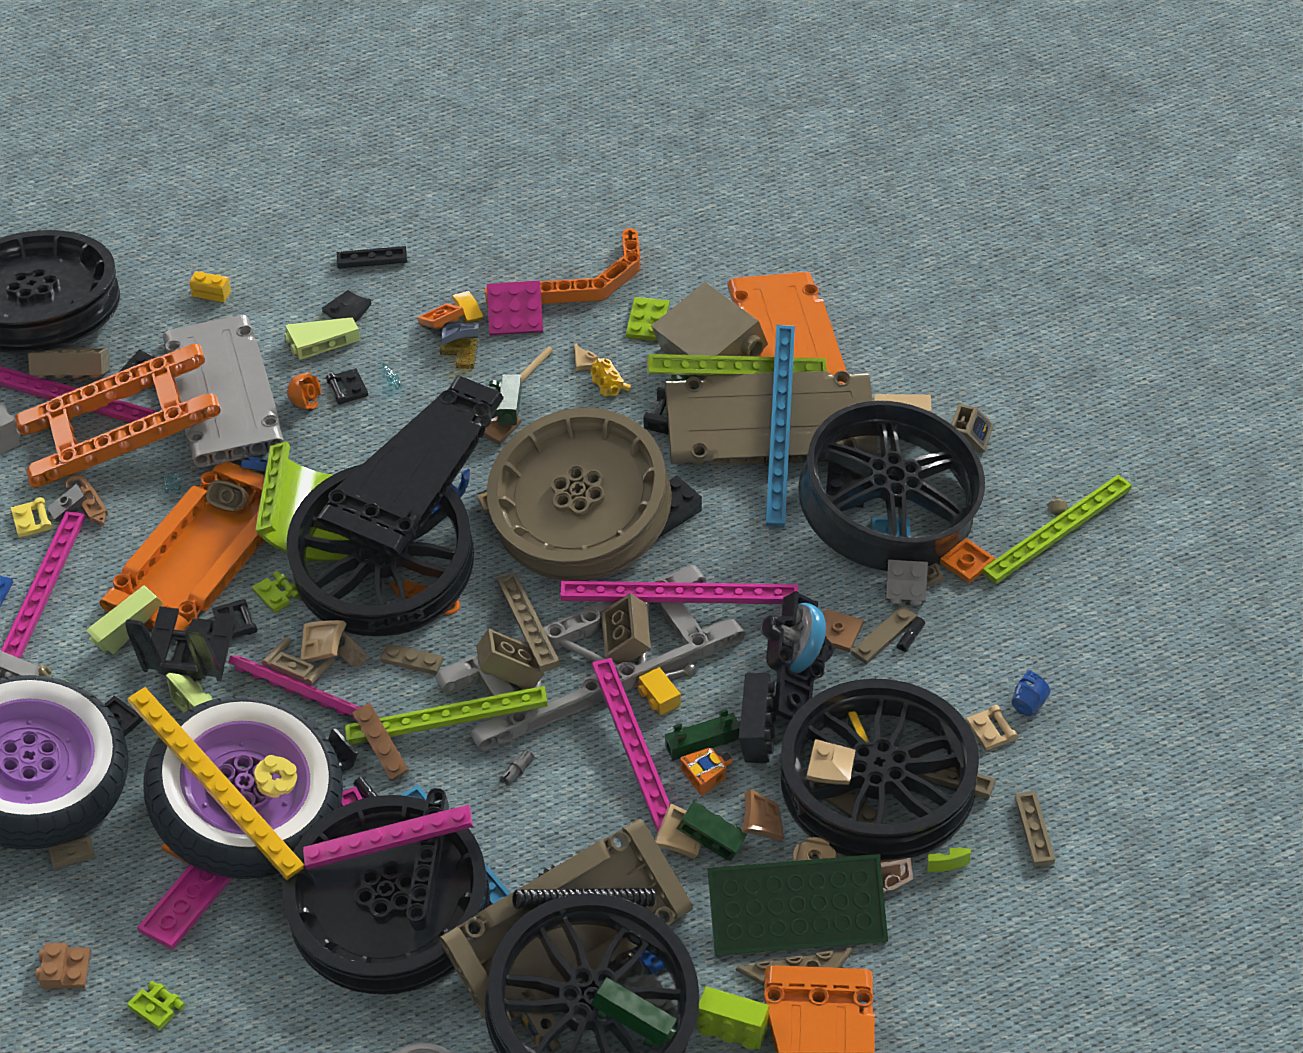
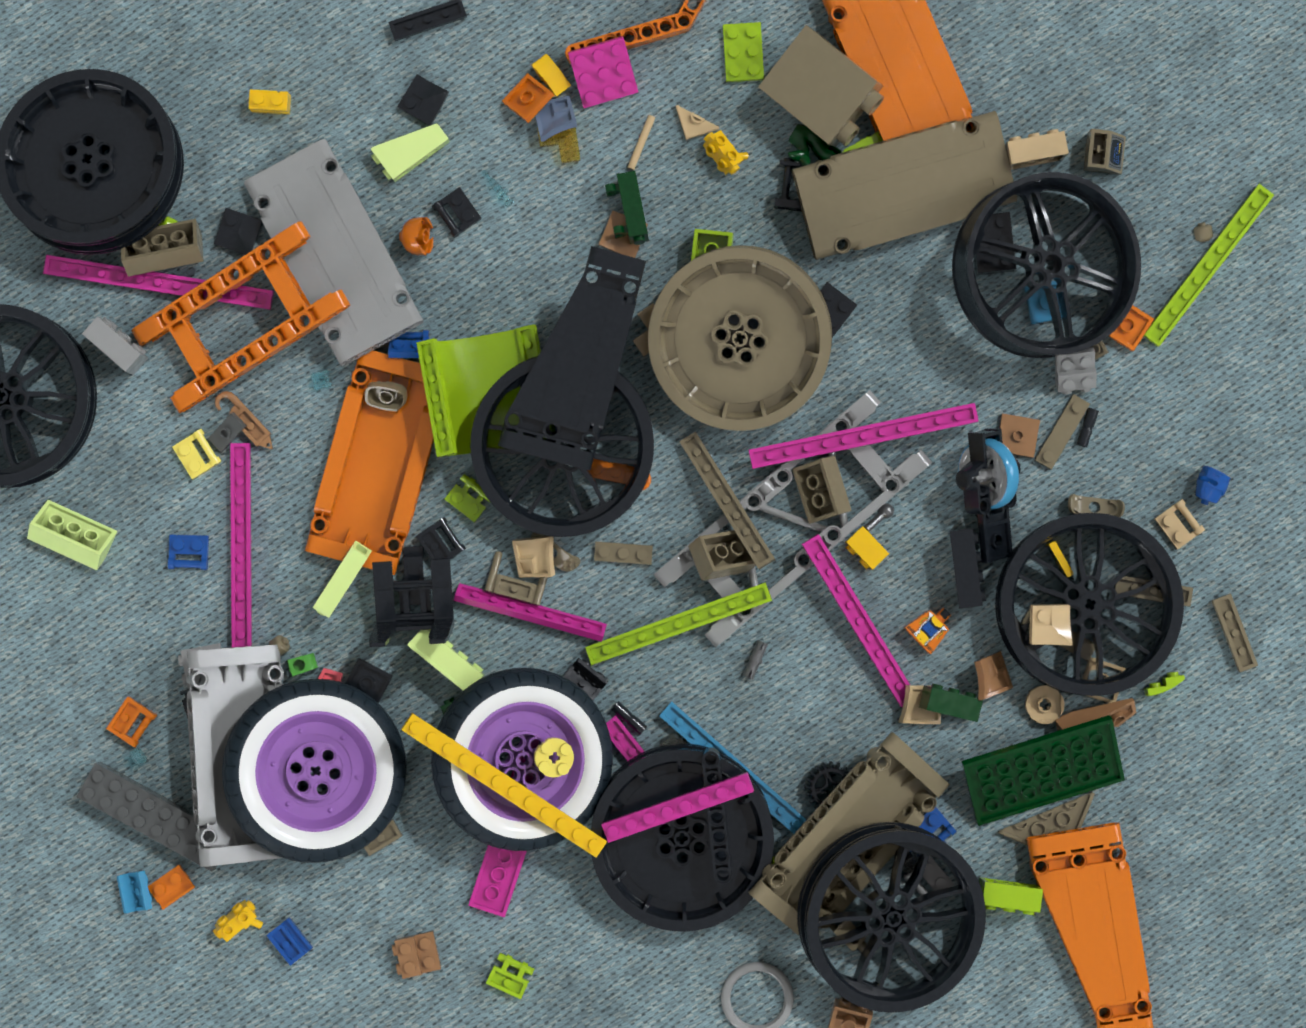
camera: 15 degrees left, 40 degrees up
(380, 742) = (625, 664): medium nougat plate -> none
(530, 898) = (862, 822): black piece -> none
(634, 1013) = (937, 939): dark green brick -> none
(702, 735) = (919, 592): dark green brick -> none
(724, 365) = (862, 138): lime plate -> none
(780, 426) = (919, 199): dark azure plate -> none

